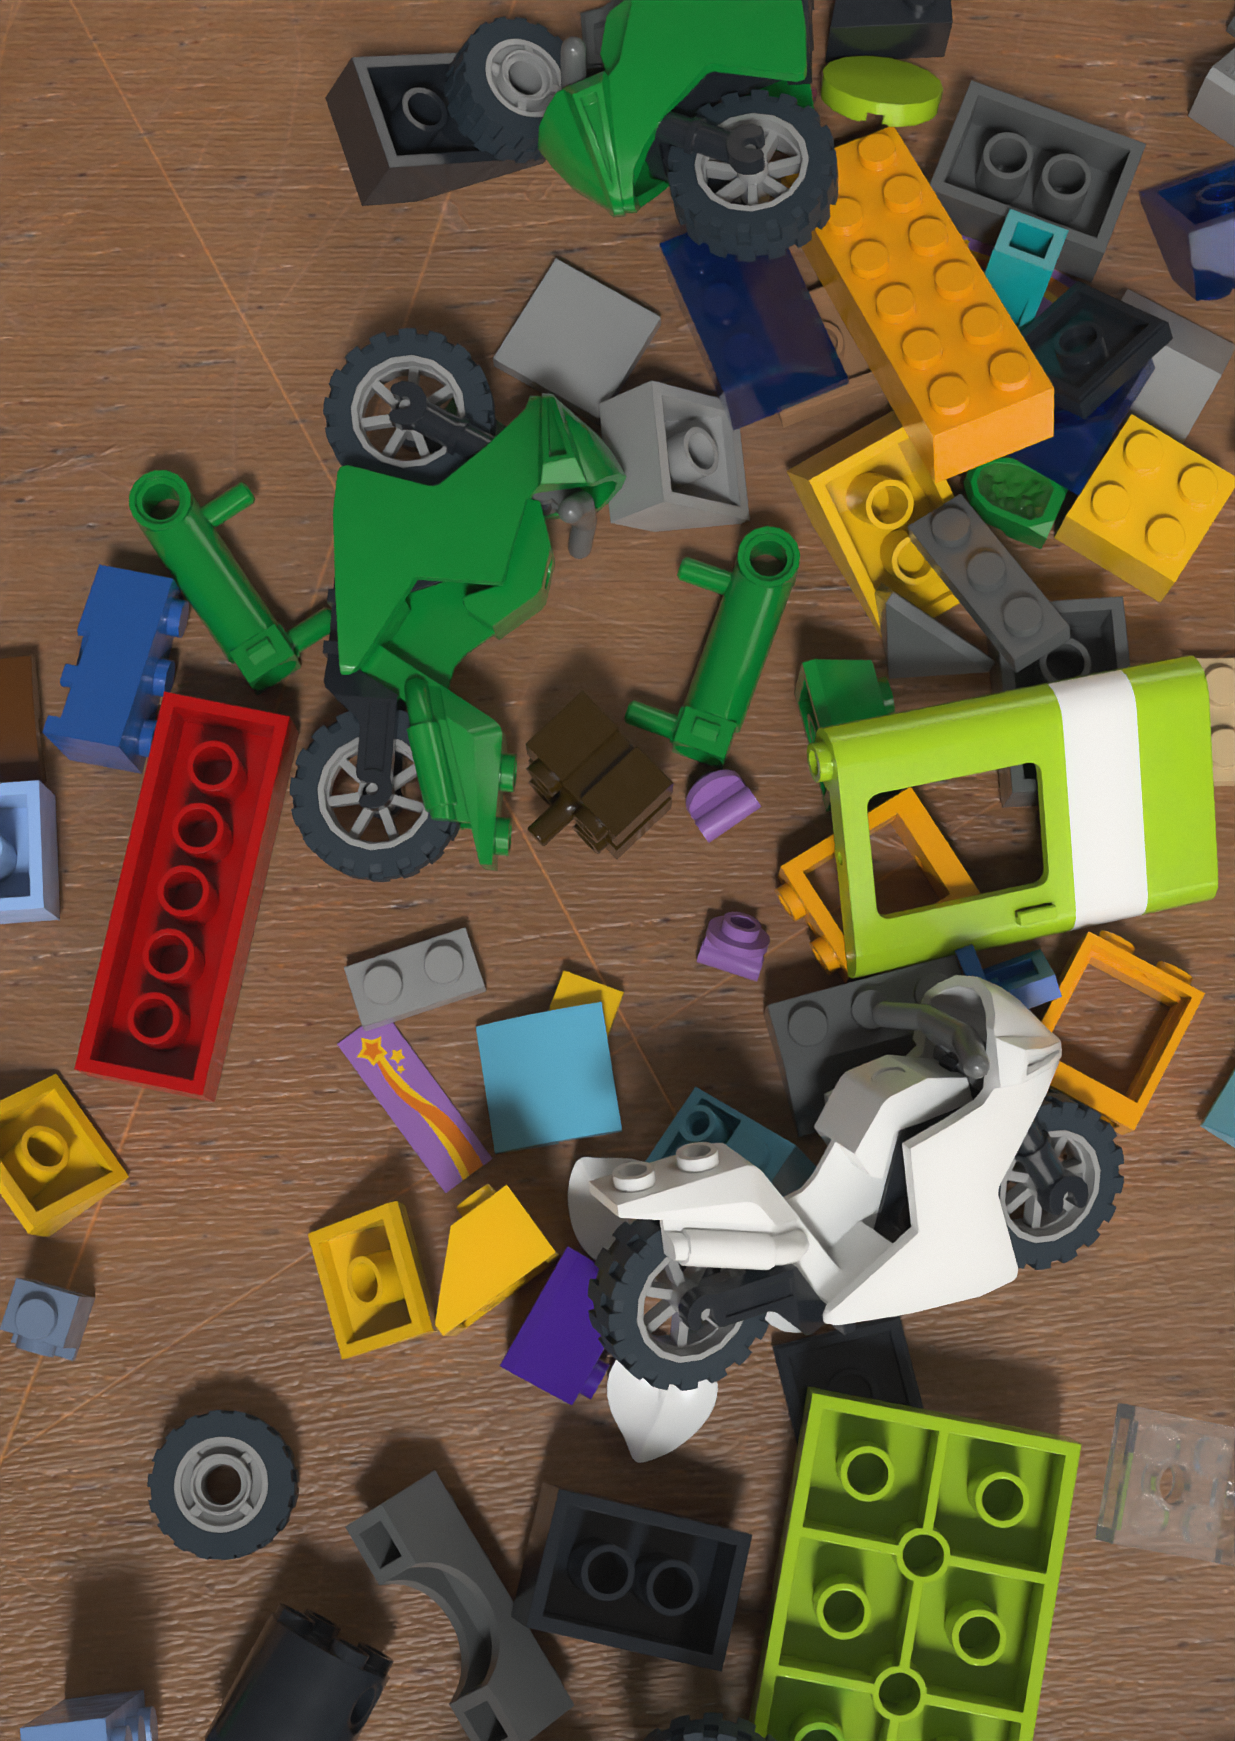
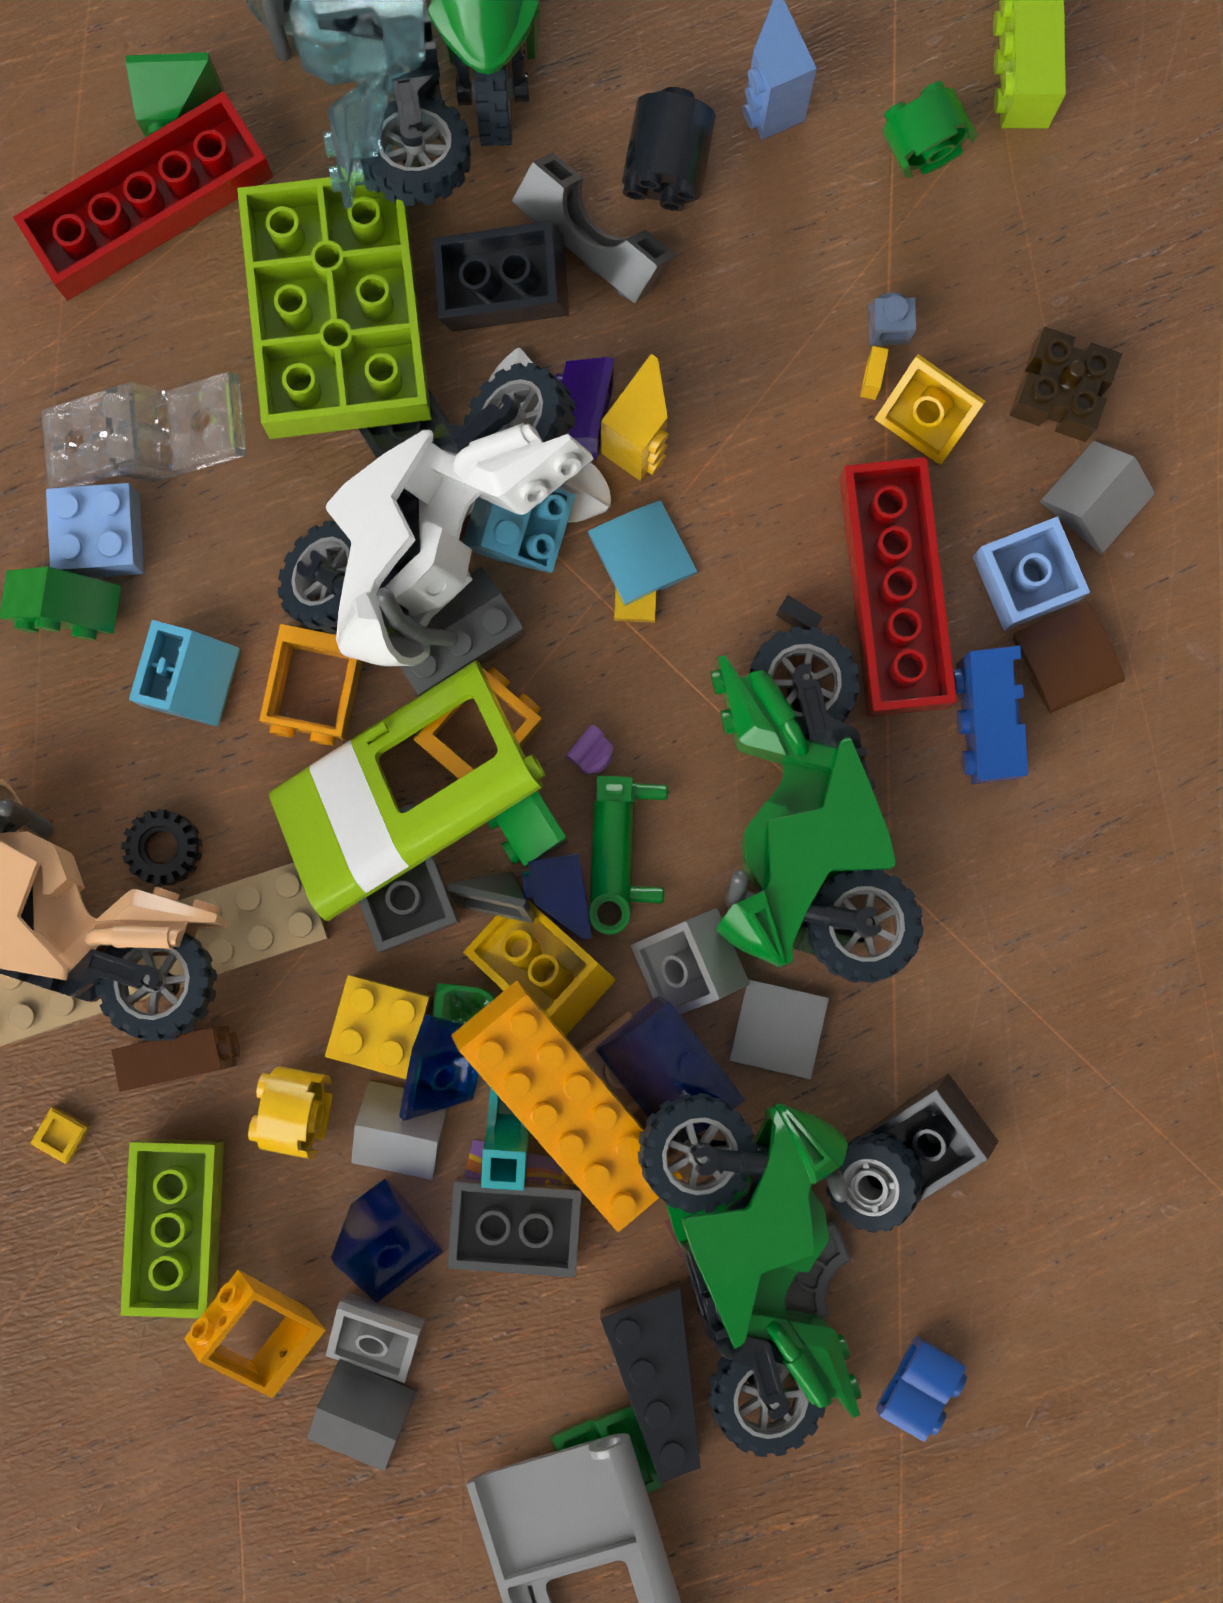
camera: 160 degrees right, 5 degrees up
(104, 1242) = (874, 372): none -> yellow tile
(182, 1476) = (759, 235): black wheel -> none
(216, 581) = (952, 793): green piece -> none
(348, 906) = (798, 614): none -> black tile
(373, 1280) = (705, 402): yellow slope -> none
(415, 979) = (743, 588): light grey plate -> none
(415, 1104) = (719, 517): medium lavender sticker -> none
(595, 778) = (672, 734): dark brown brick -> none
(735, 945) = (555, 669): medium lavender plate -> none
(832, 600) = (560, 891): none -> clear blue slope
(881, 87) = (634, 1261): lime tile -> none
(989, 583) = (465, 933): dark grey plate -> none
(1024, 976) = (380, 690): blue tile -> none
(1092, 345) = (448, 1109): black tile -> none

